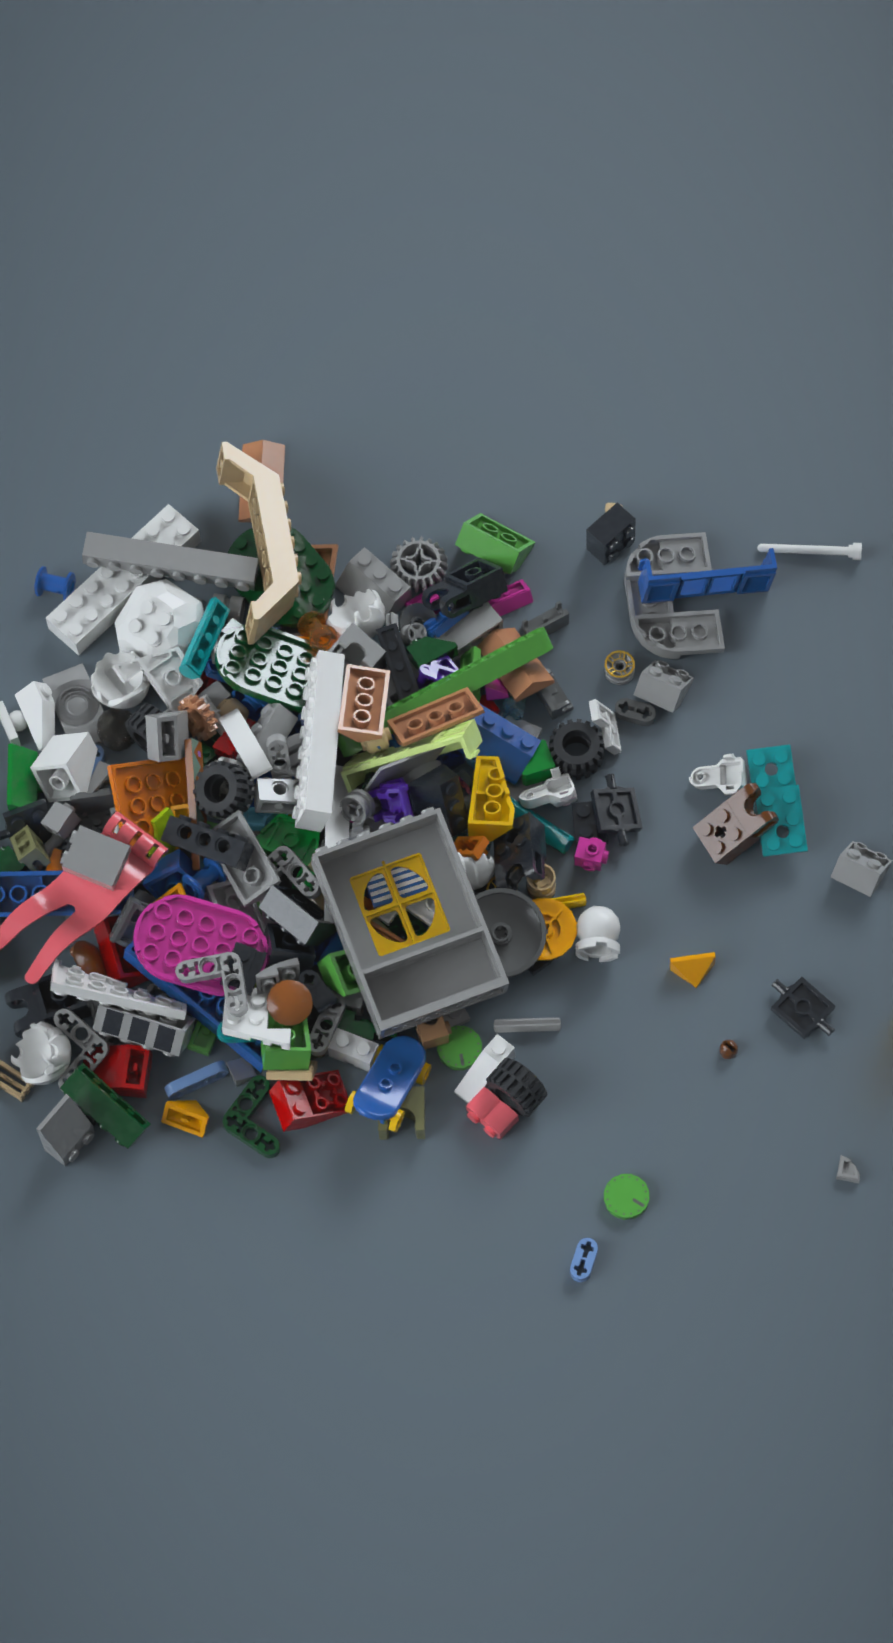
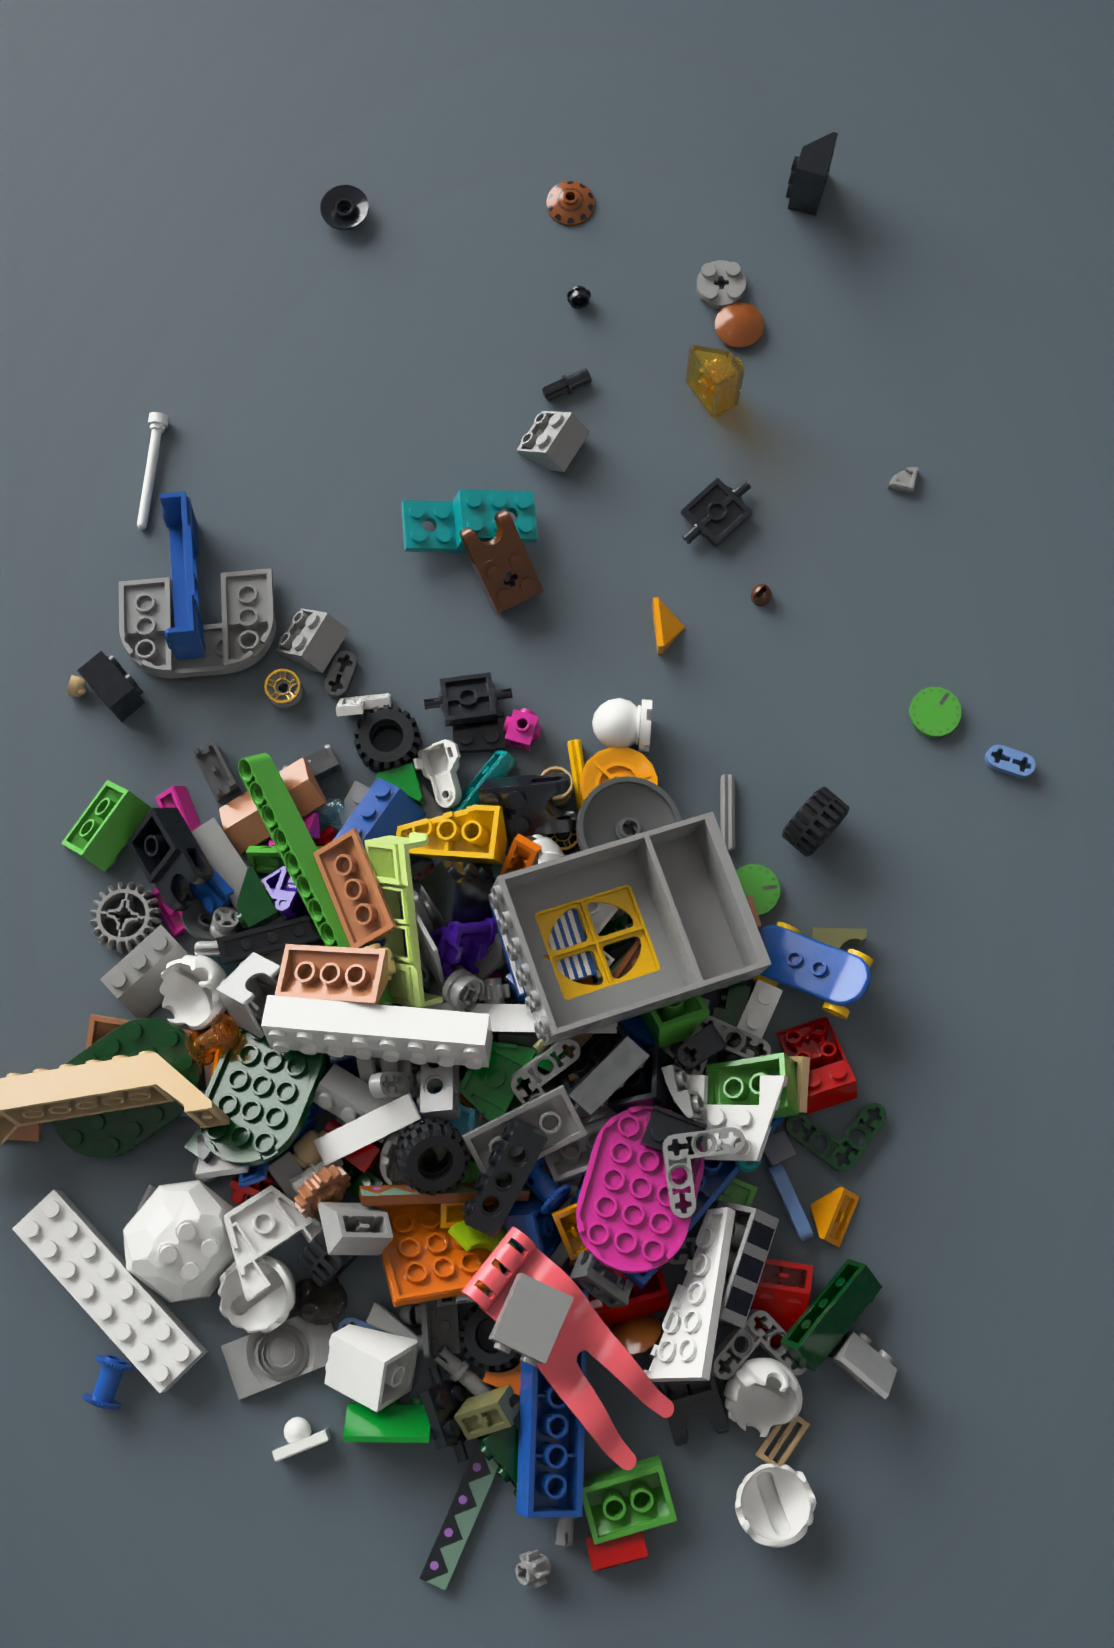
camera: 90 degrees left, 10 degrees up
(38, 711) = (291, 1402): white slope -> none
(60, 819) = (451, 1371): light grey brick -> none
(170, 561) = (99, 1225): light grey brick -> none
(204, 639) = (215, 1180): teal brick -> none
(235, 604) = (165, 1155): light grey wheel -> none
(289, 1002) = (721, 1078): dark orange dish -> none
(483, 1067) = (784, 860): white slope -> none
(492, 1113) = (838, 855): coral brick -> none
(727, 775) = (432, 575): white piece -> none

